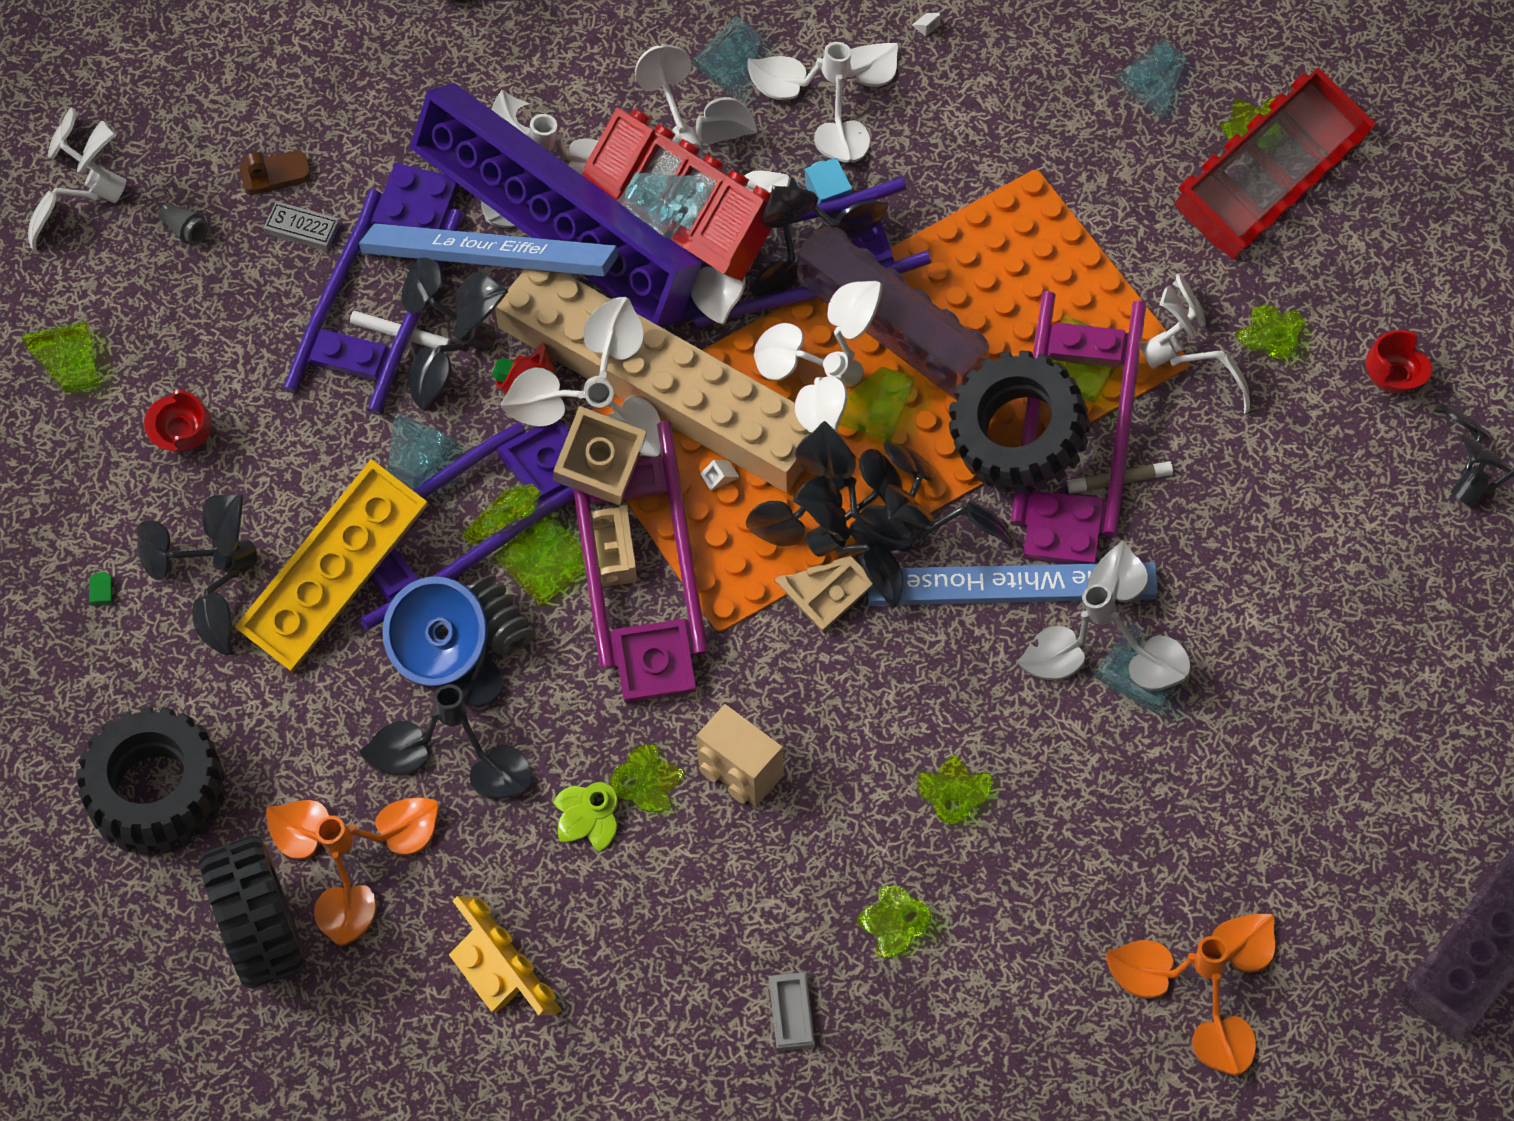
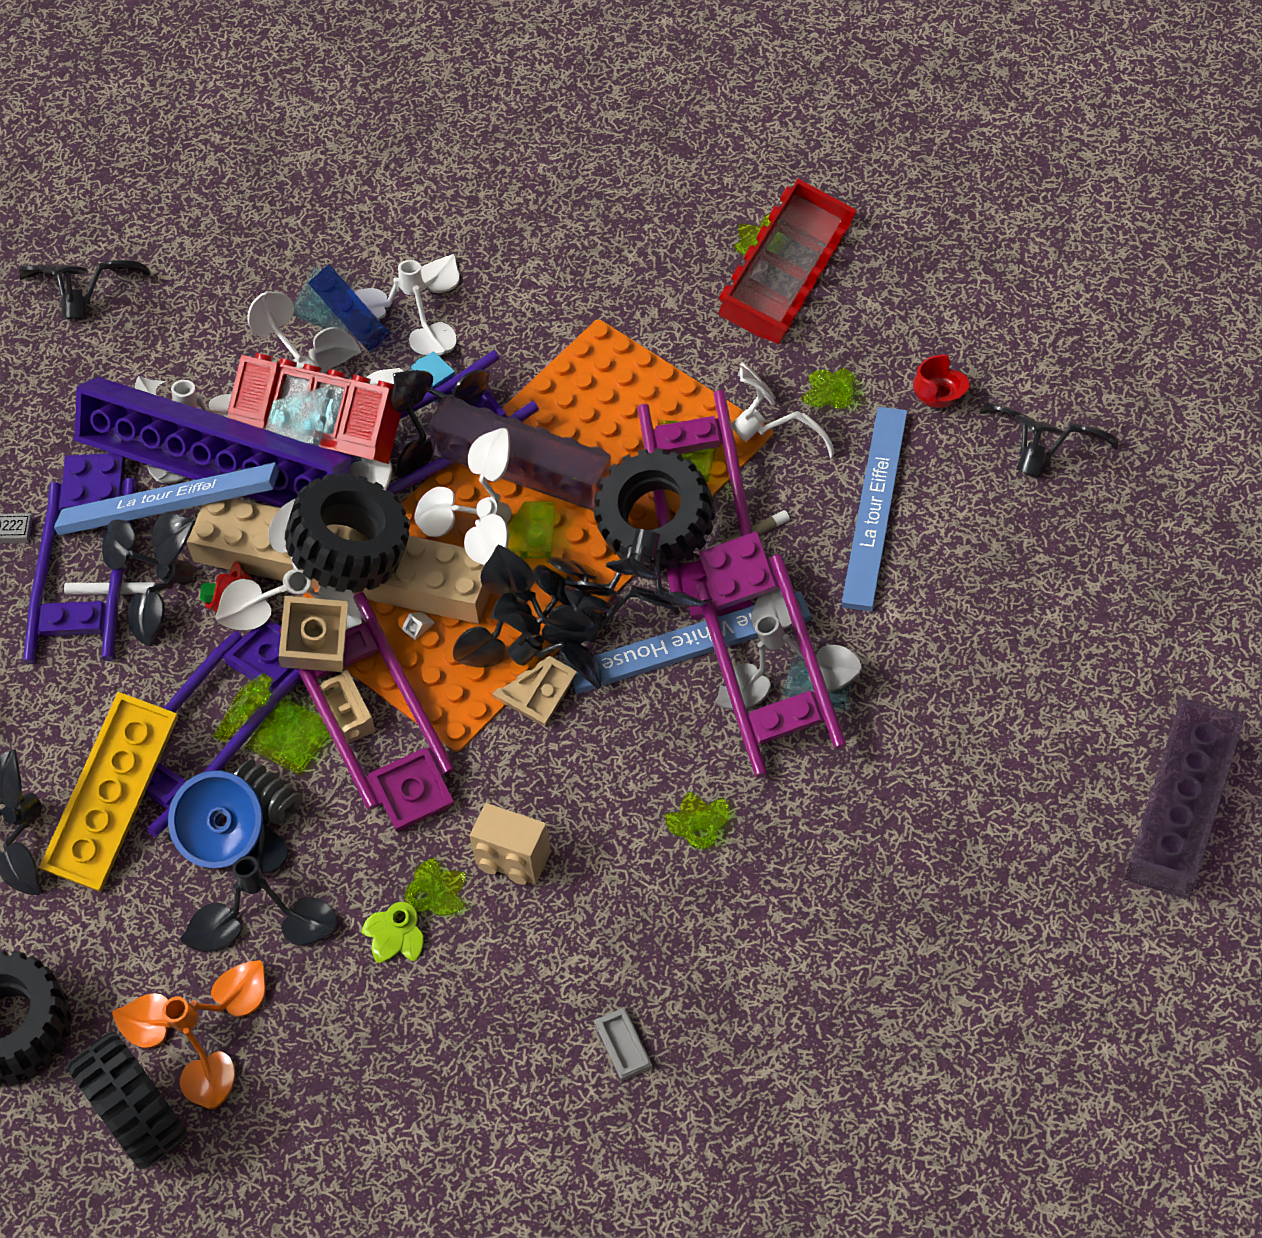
camera: 15 degrees left, 5 degrees down
(416, 450) = (154, 677): clear light blue wing -> none
(495, 965) = (353, 1083): yellow bracket -> none
(690, 325) = (341, 561): none -> black tyre
(758, 78) = (349, 307): none -> clear blue brick
(889, 922) = (680, 943): clear neon green plate -> none
(927, 23) = (473, 233): white piece -> none
(984, 471) = (641, 552): none -> black plant
(1088, 523) = (735, 575): none -> magenta plate
(1154, 77) = (668, 225): clear light blue wing -> none
(1245, 942) = (980, 870): orange plant -> none
(1273, 489) = (874, 509): none -> medium blue tile

